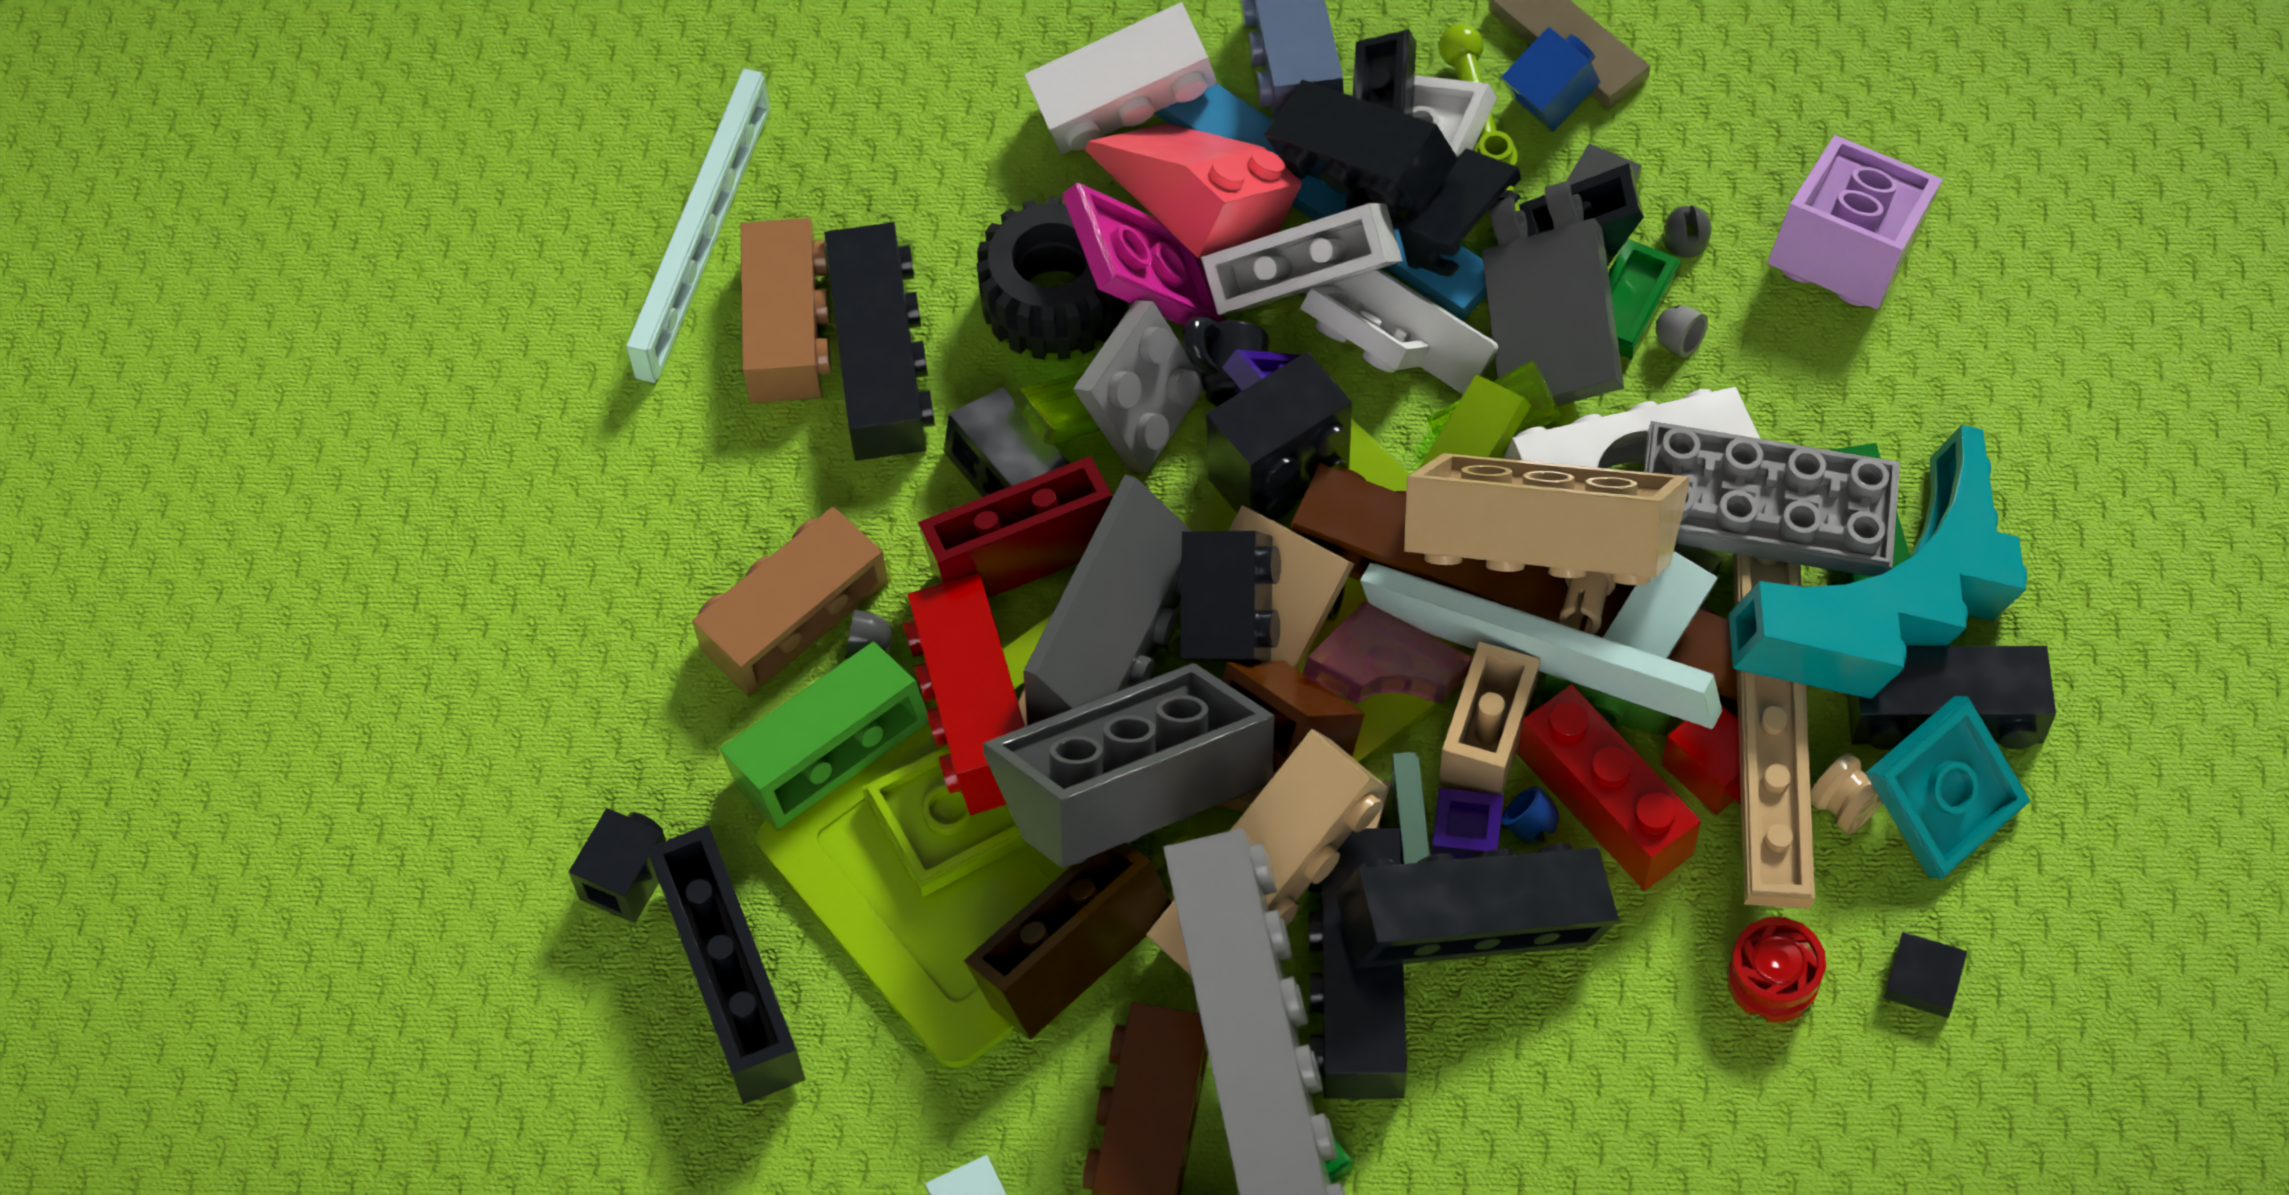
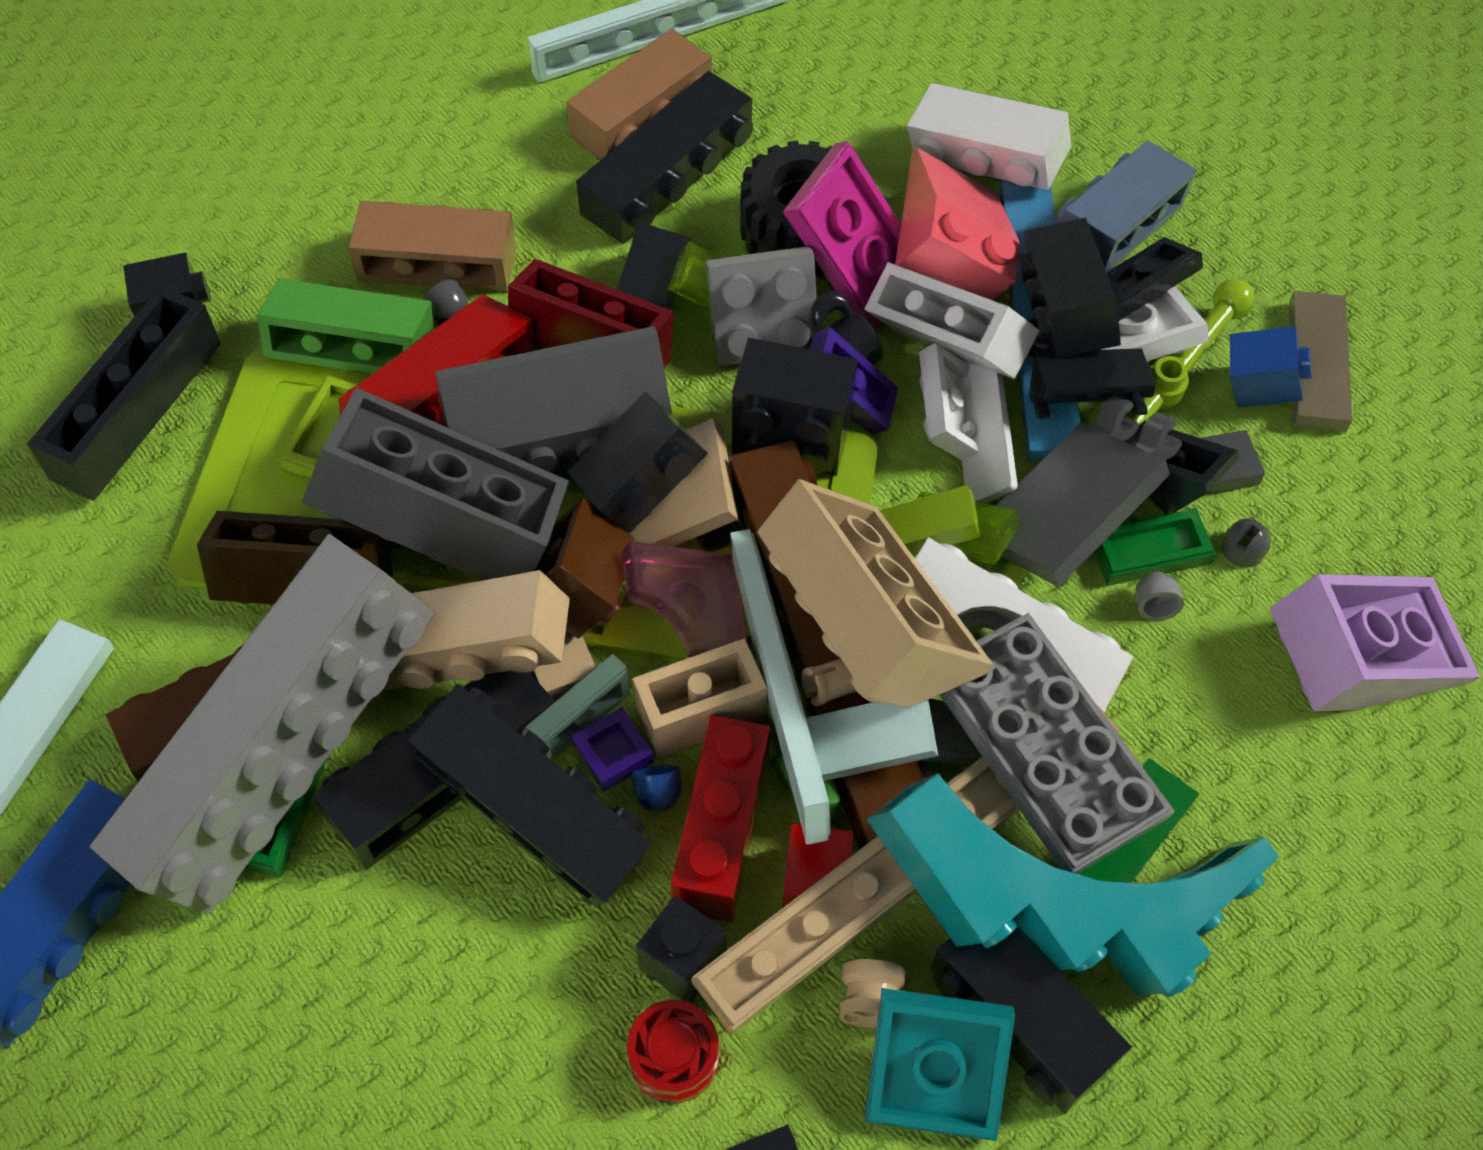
camera: 45 degrees right, 0 degrees up
(1700, 898) = (679, 947): none -> black brick

